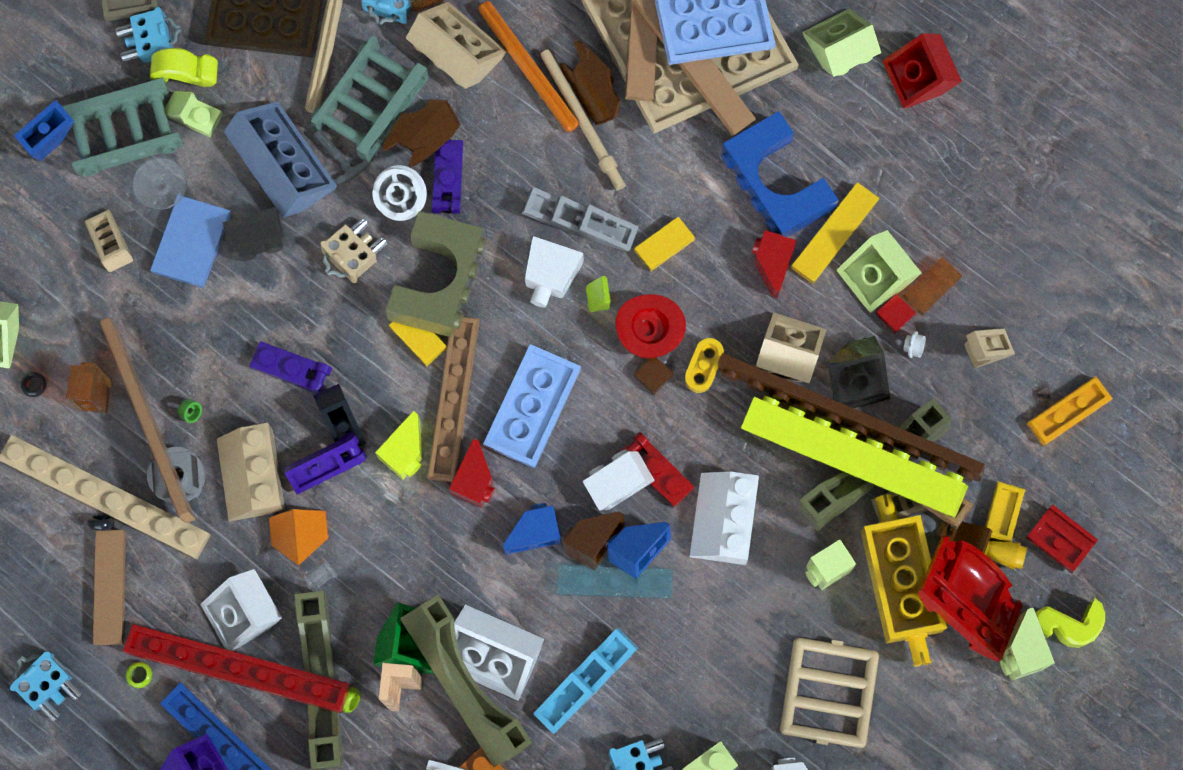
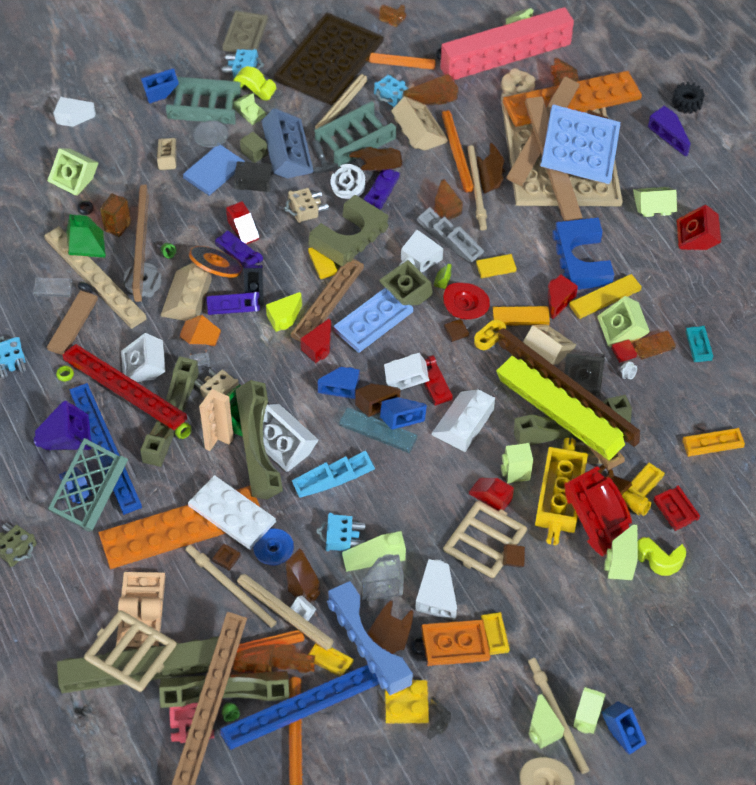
camera: 20 degrees right, 20 degrees down
(52, 539) = (53, 287): none -> clear tile
(62, 444) = (84, 237): none -> green slope
(232, 181) = (253, 147): none -> olive brick
(270, 409) = (215, 261): none -> piece
(276, 322) = (242, 222): none -> slope
(376, 611) = (220, 382): none -> tan piece
(553, 167) = (447, 202): none -> clear orange slope
(557, 336) = (407, 284): none -> olive slope
(733, 313) = (522, 315): none -> light orange tile
(810, 619) = (493, 492): none -> red slope
(879, 705) = (513, 555): none -> reddish brown tile
(988, 346) = (674, 386): tan slope -> none
(993, 261) = (699, 344): none -> teal plate

